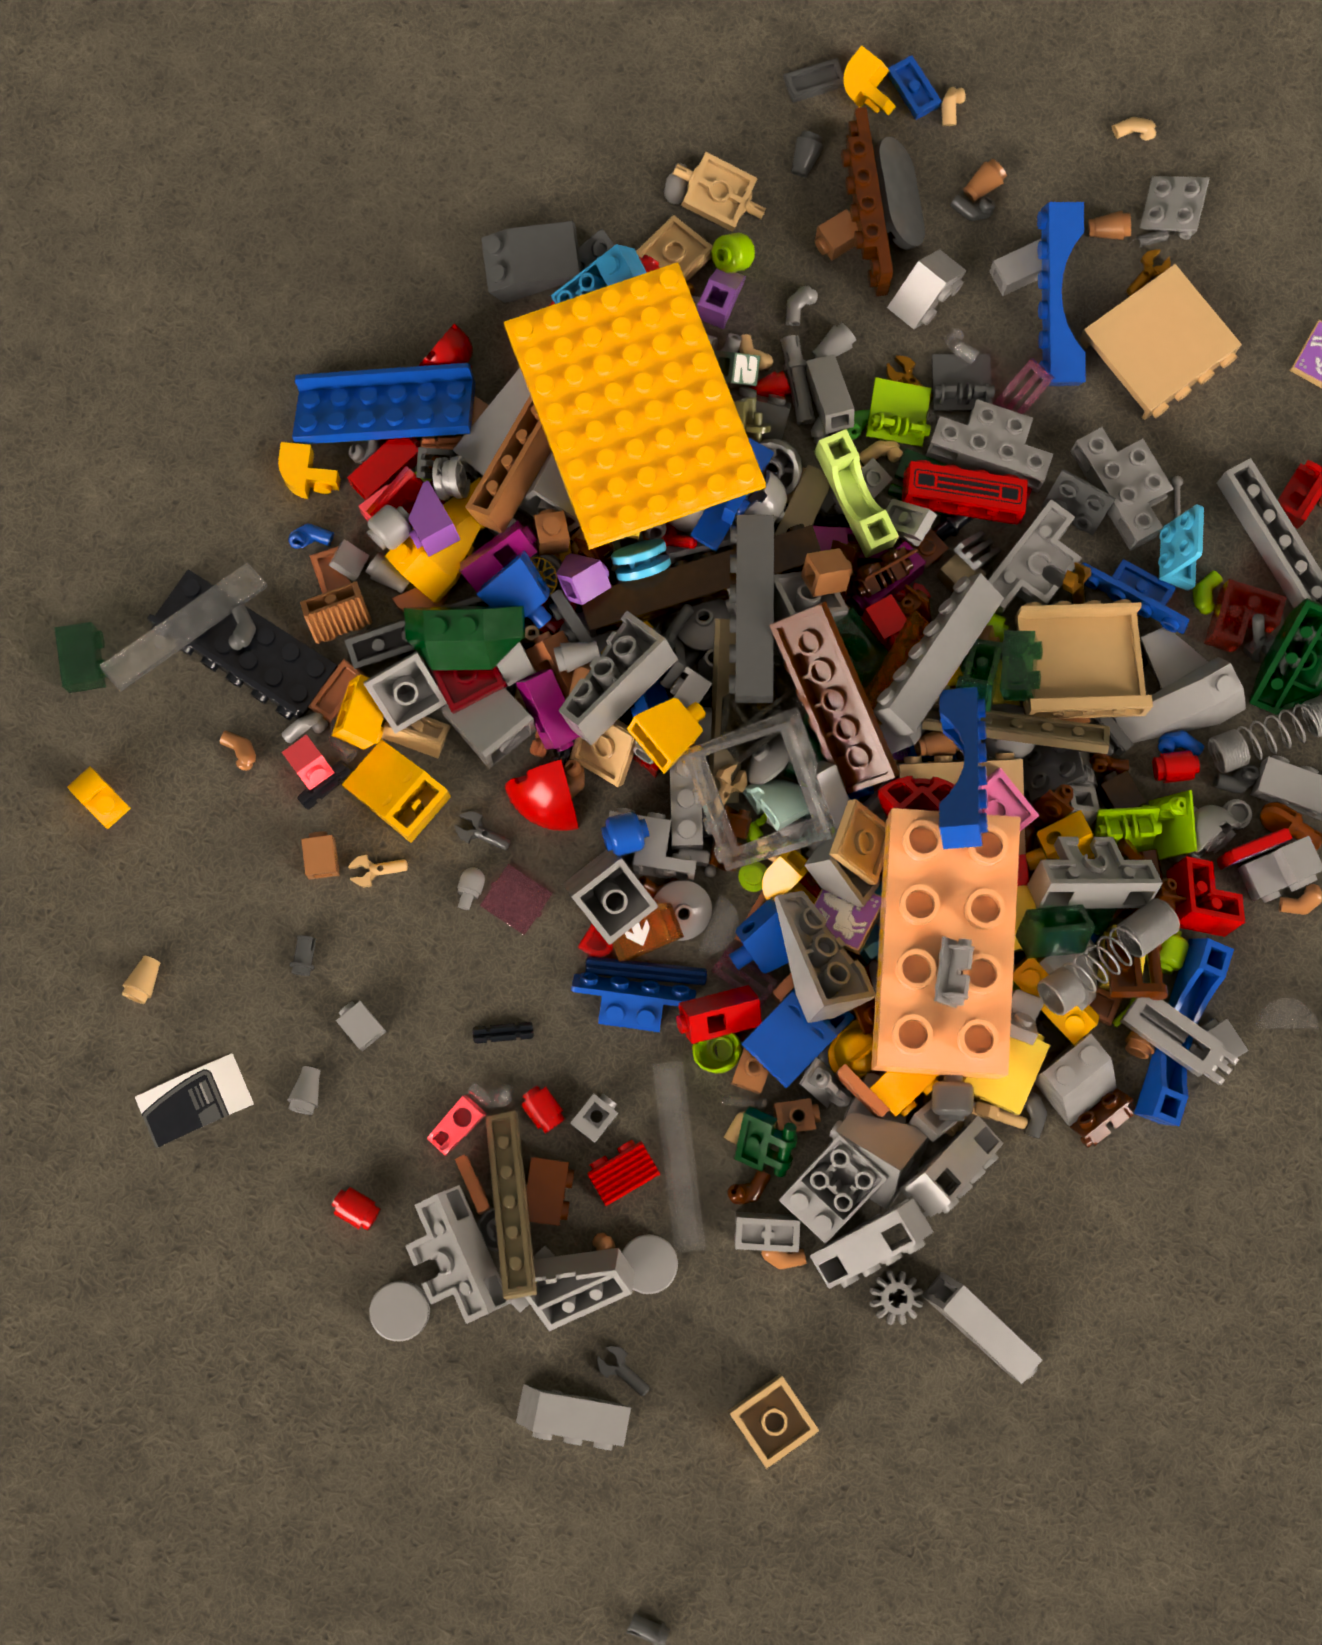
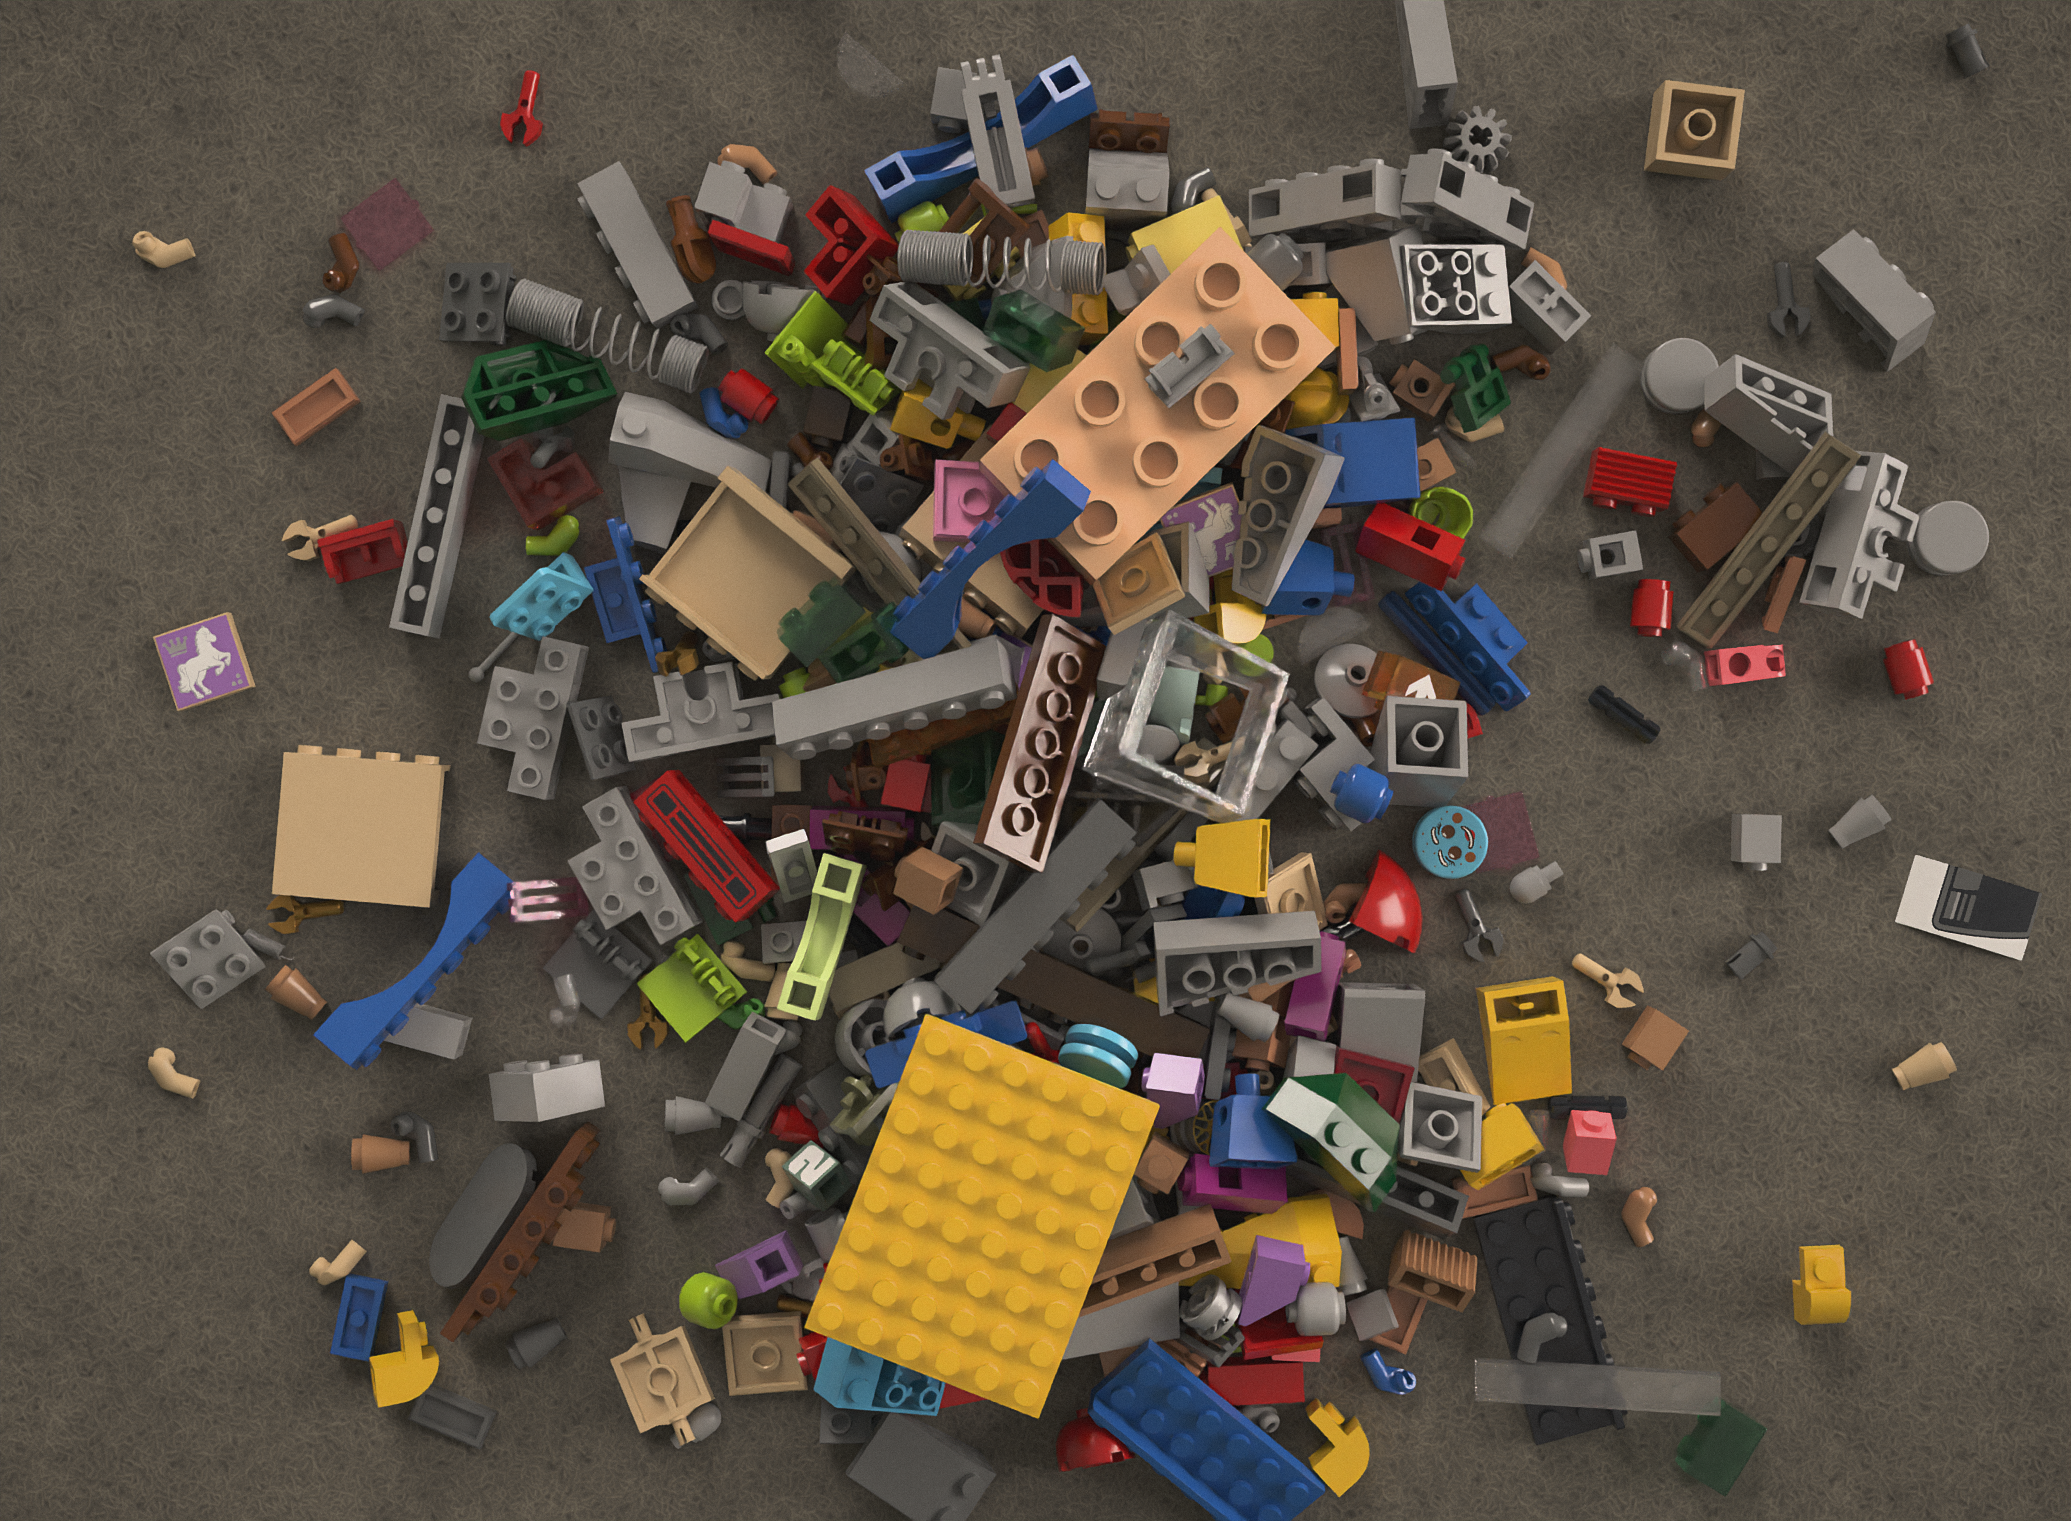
camera: 135 degrees left, 10 degrees up
(541, 865) = (1450, 842): none -> medium azure head

